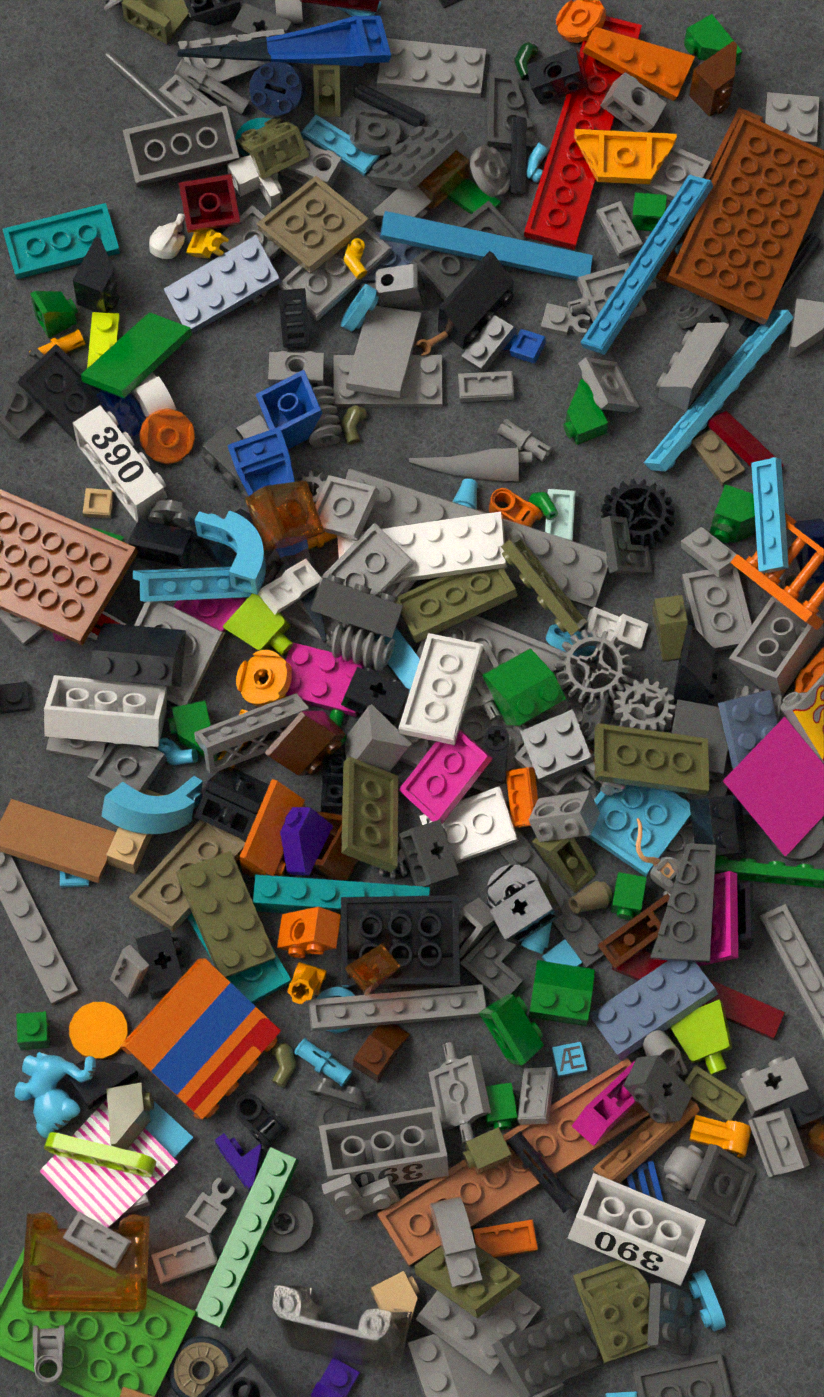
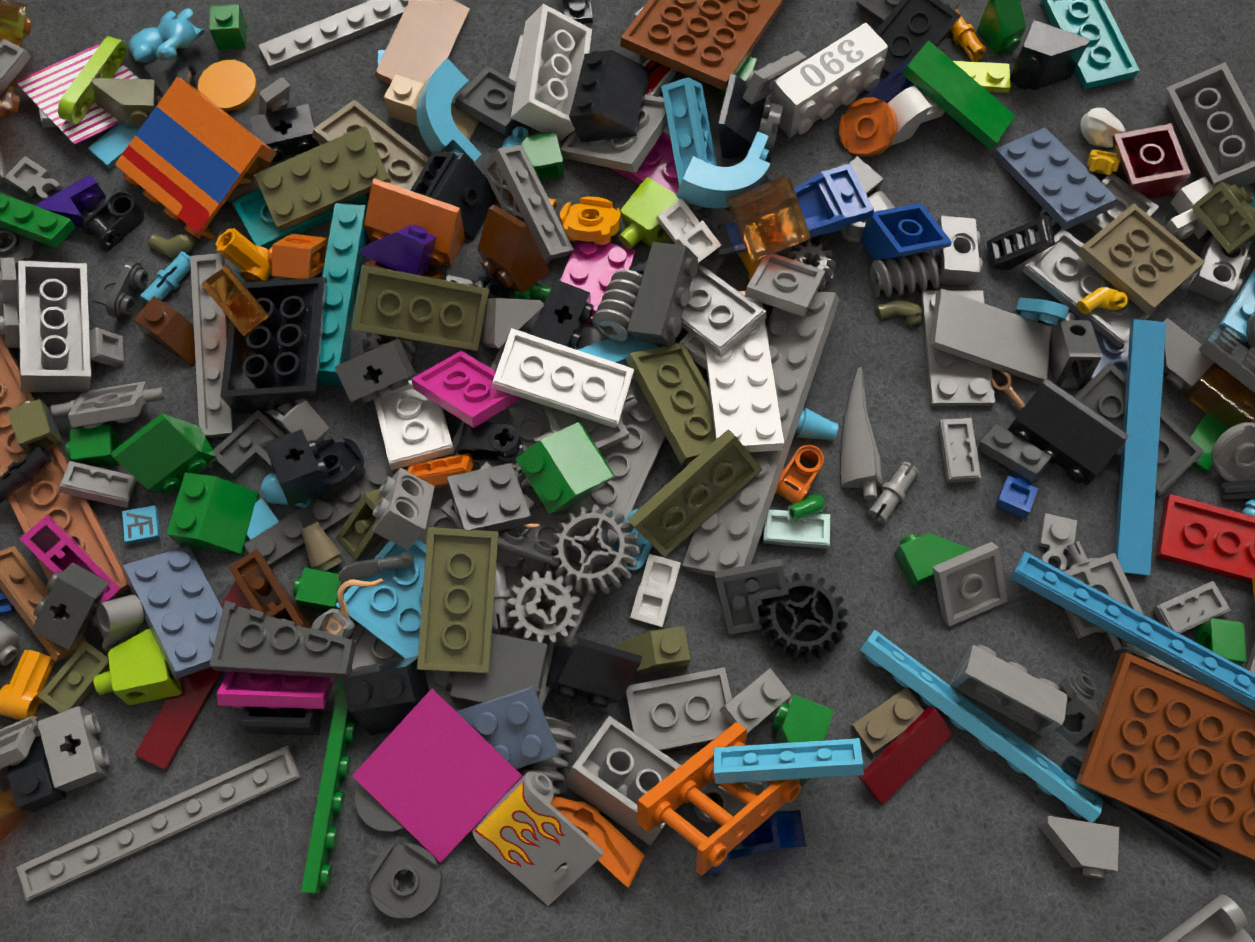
camera: 90 degrees right, 0 degrees up
(124, 507) = (761, 82): none -> light grey plate
(396, 1105) = (106, 347): none -> light grey tile
(615, 842) = (373, 567): none -> dark grey piece

